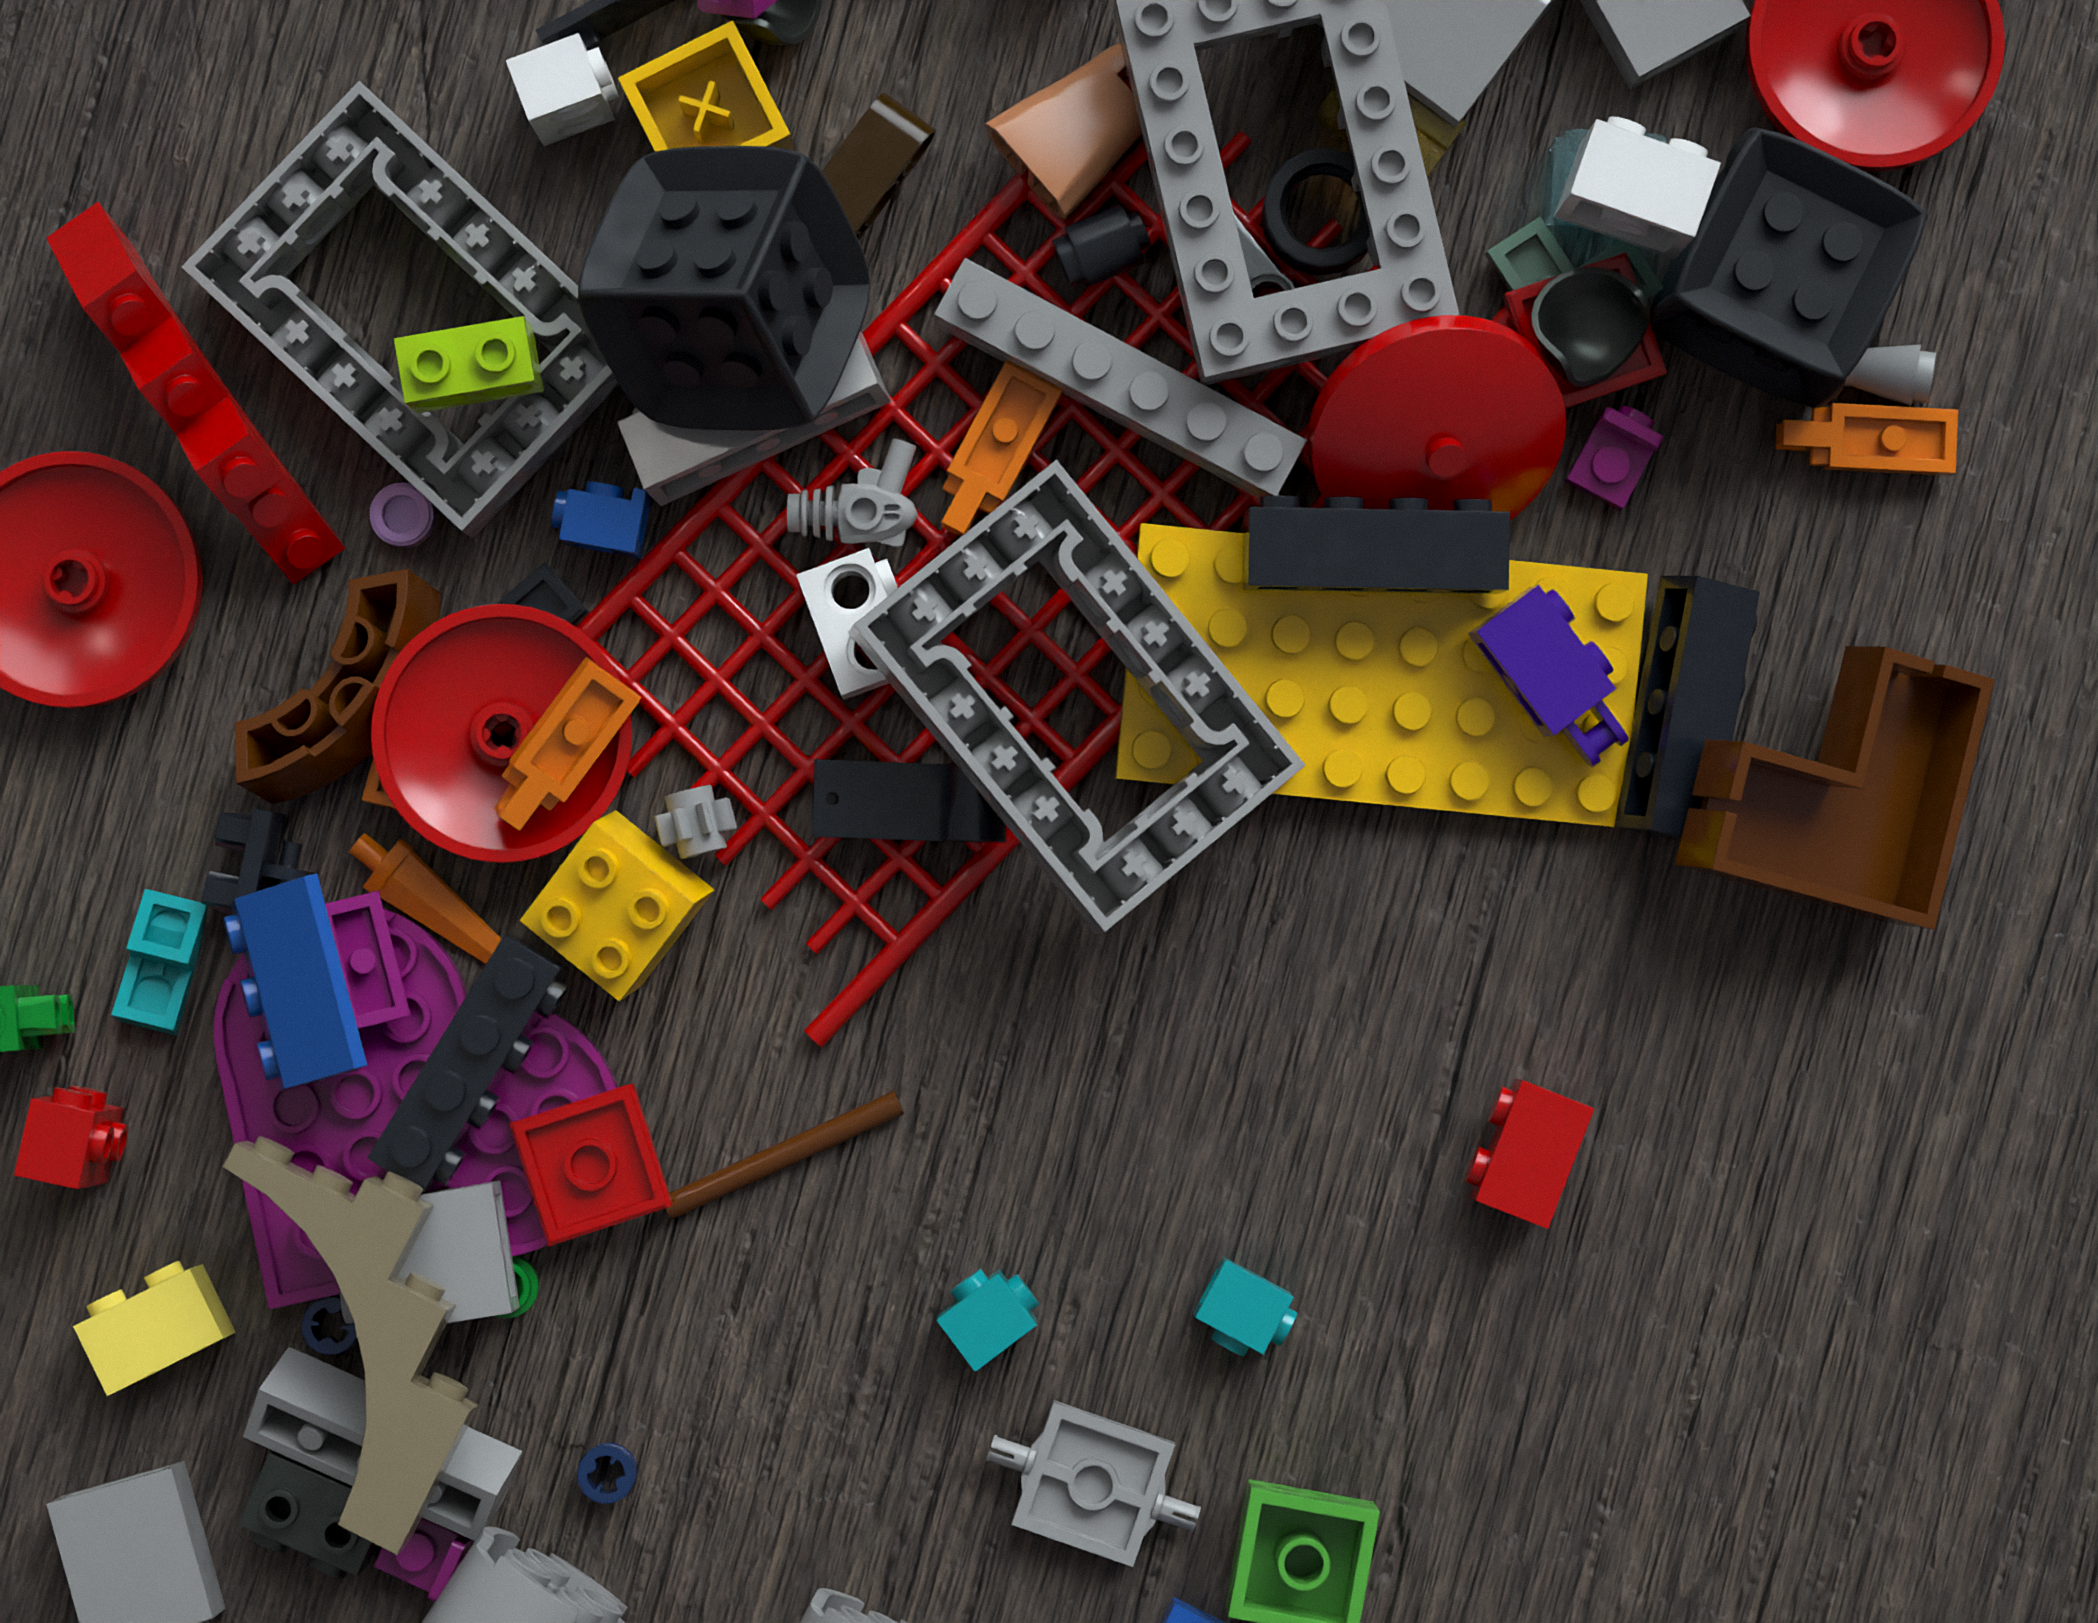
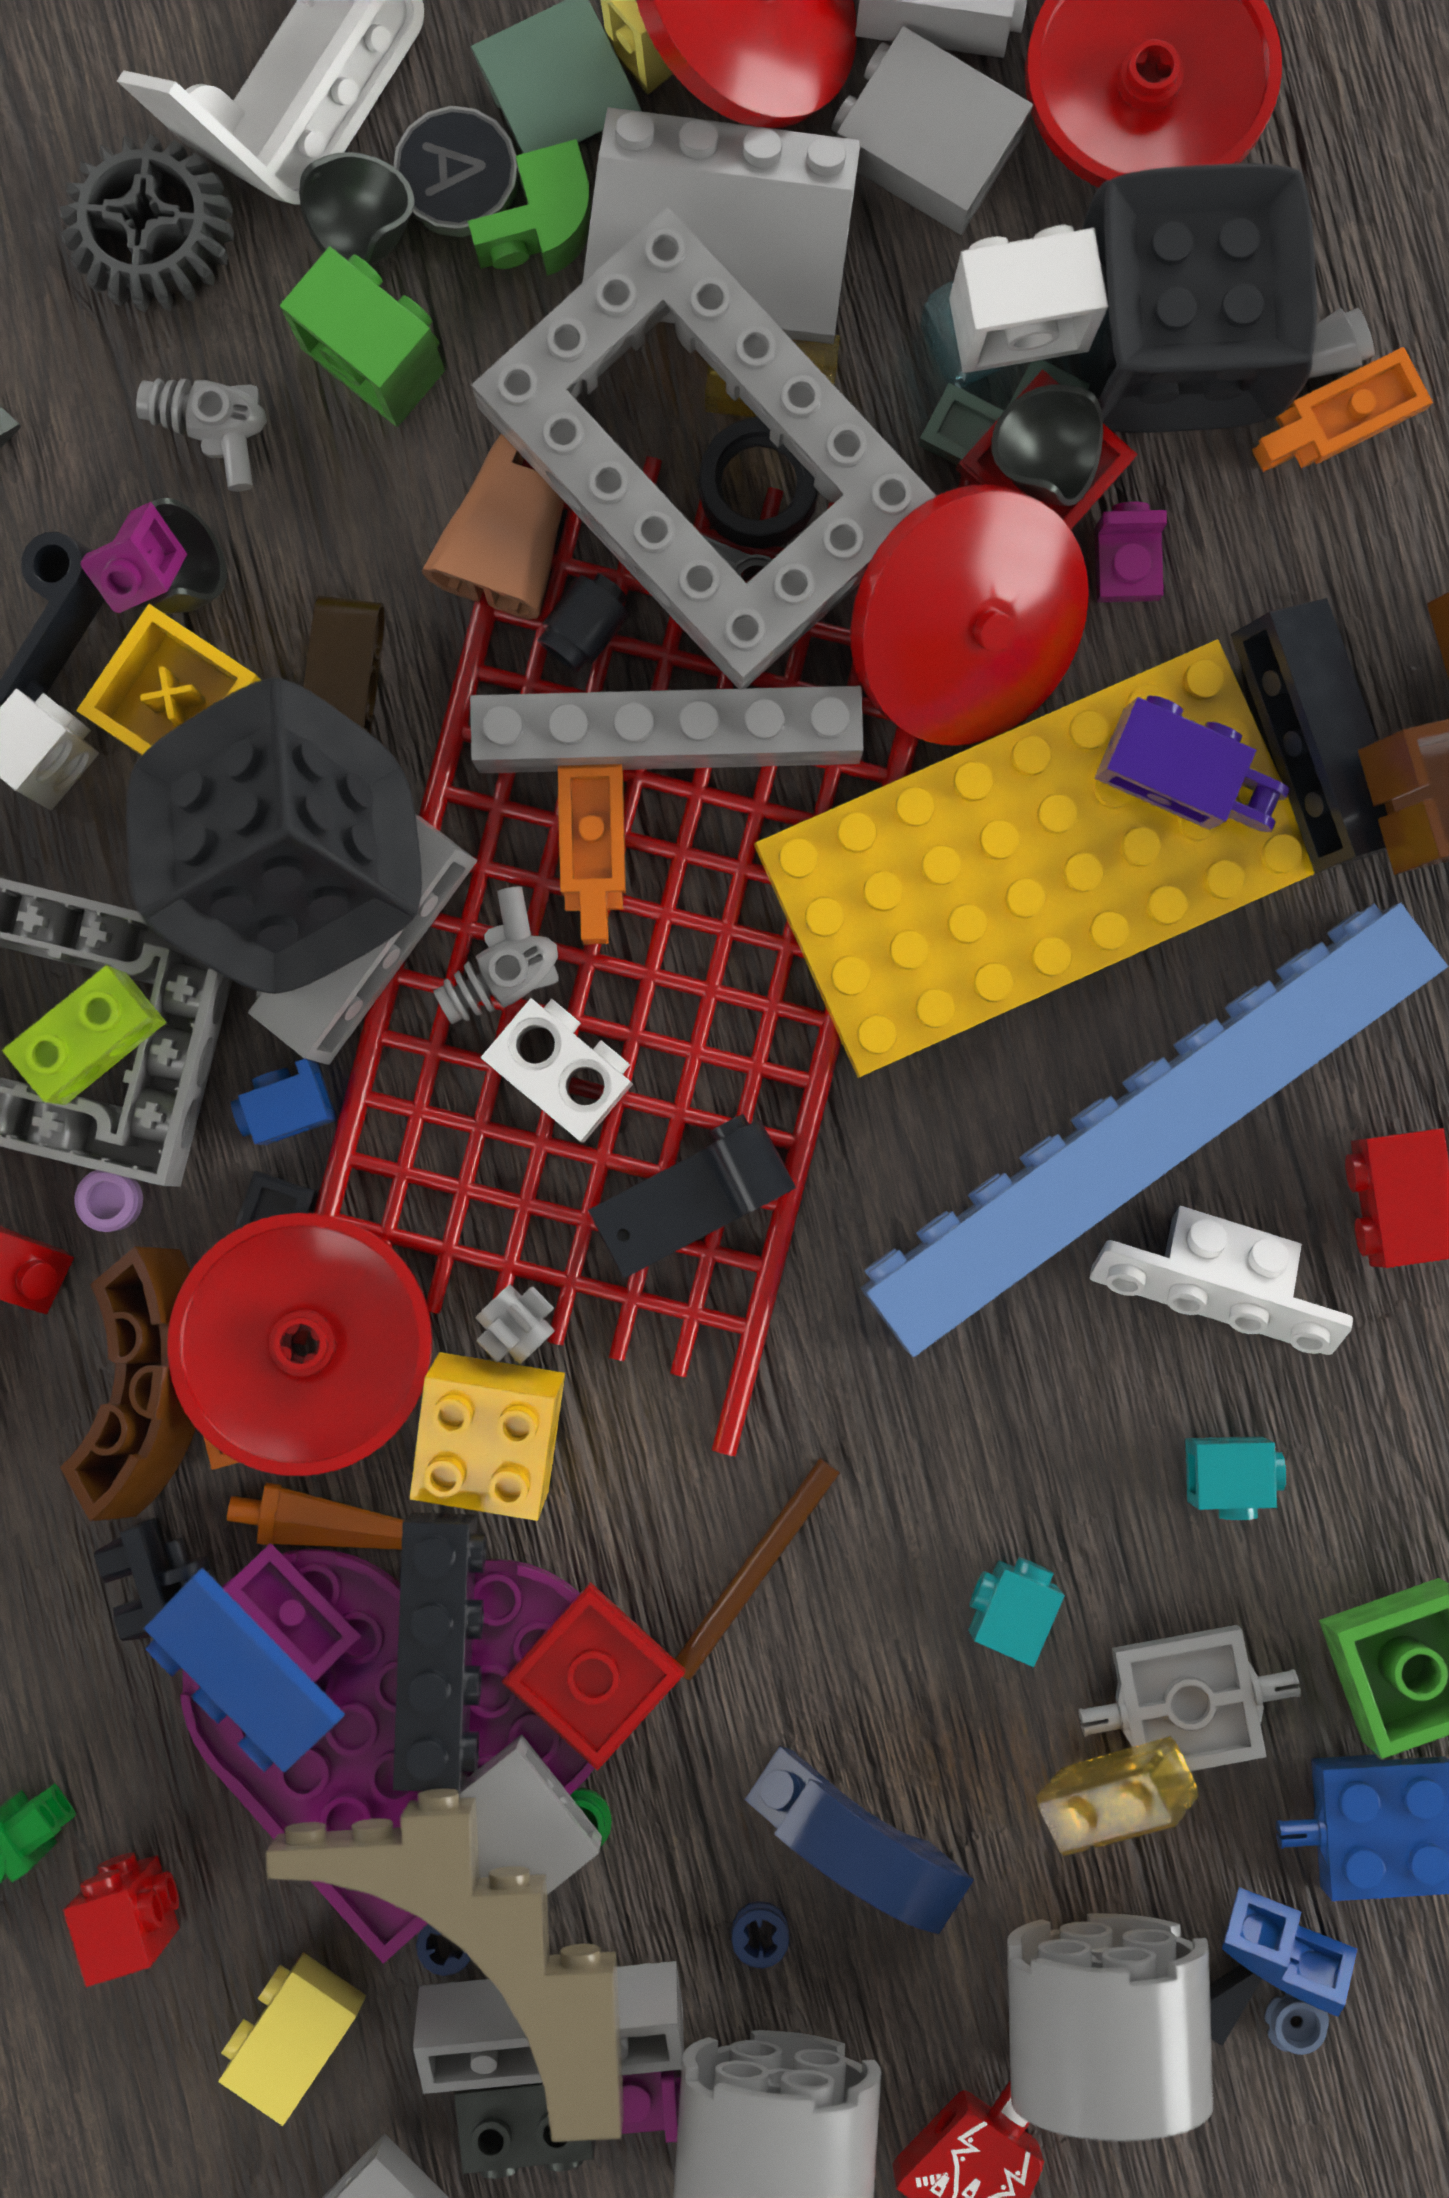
camera: 25 degrees left, 0 degrees up
(160, 962) = (118, 1710): teal slope -> none
(565, 742) = (360, 1321): orange hinge -> none
(736, 1441) = (855, 1848): none -> dark blue arch
(983, 1522) = (1117, 1796): none -> clear yellow brick
(1065, 532) = (951, 985): light grey brick -> none
(1337, 1133) = (1225, 1276): none -> white bracket
(1342, 964) = (1152, 1127): none -> medium blue brick
(1376, 548) = (976, 746): black brick -> none

